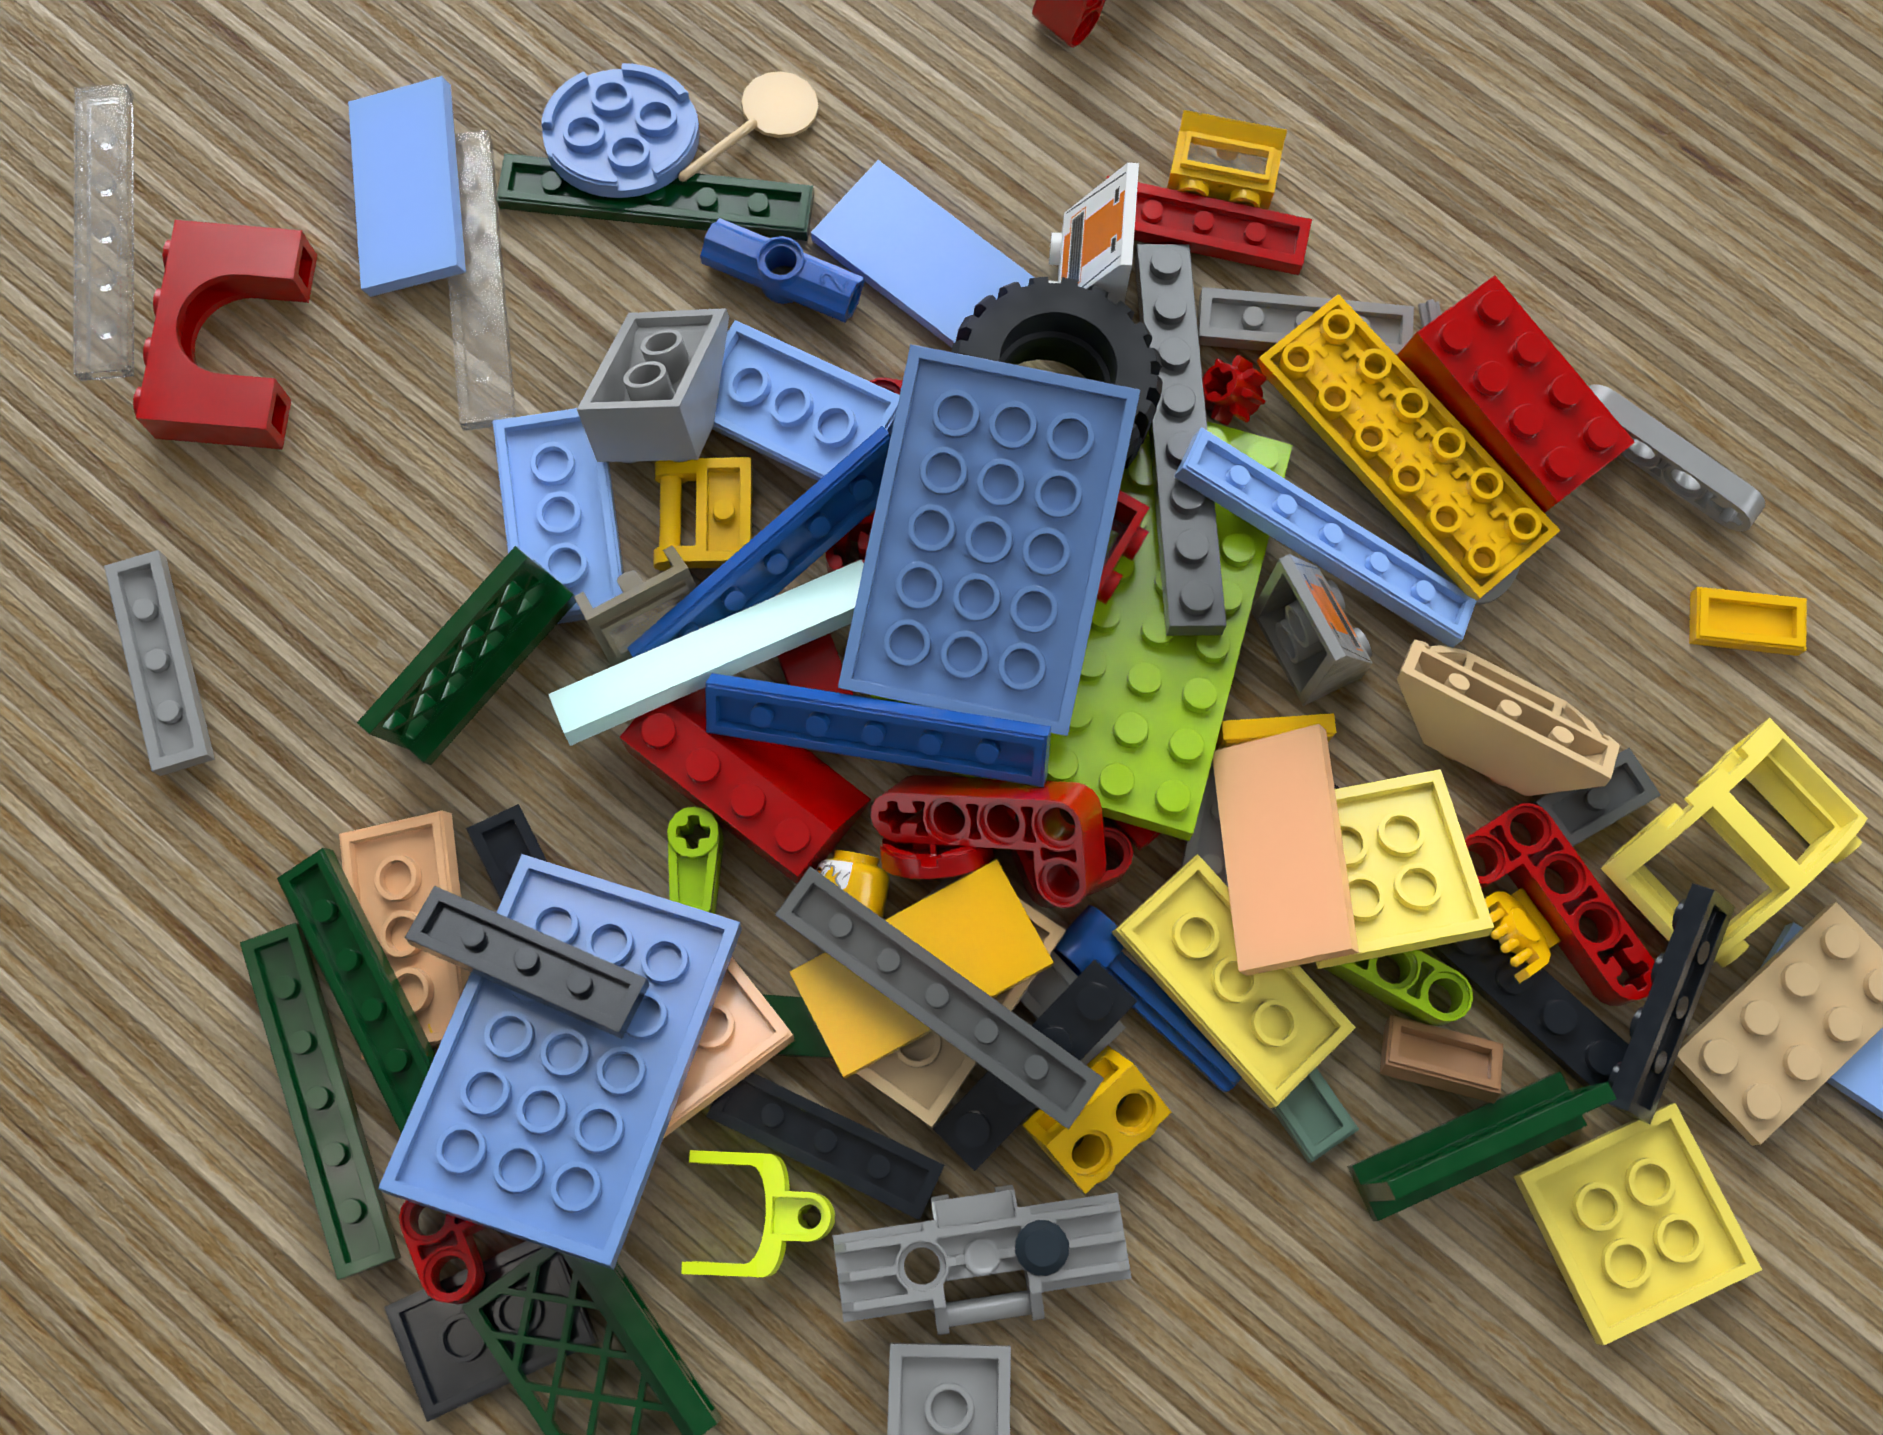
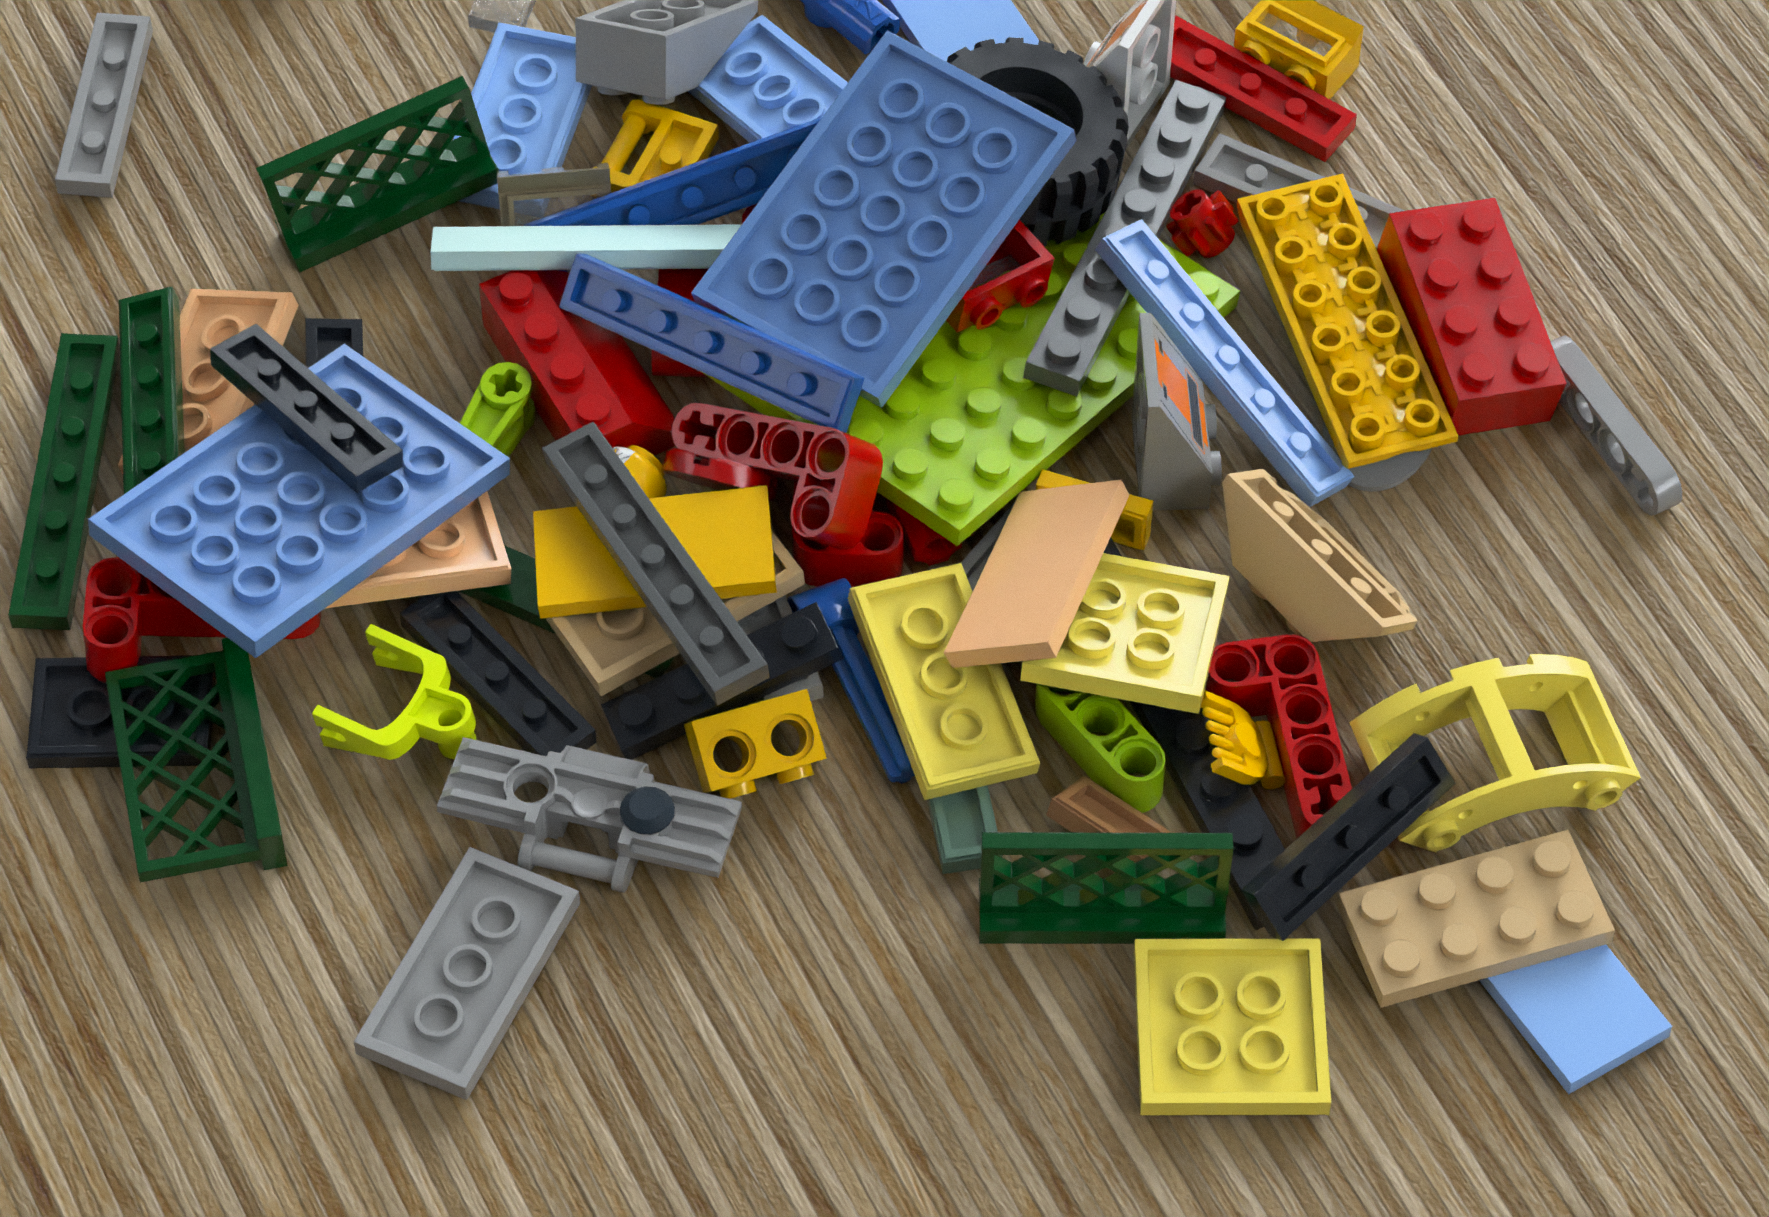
camera: 25 degrees right, 20 degrees down
(1592, 809) = (1370, 673): dark grey plate -> none
(1748, 621) = (1620, 592): yellow tile -> none

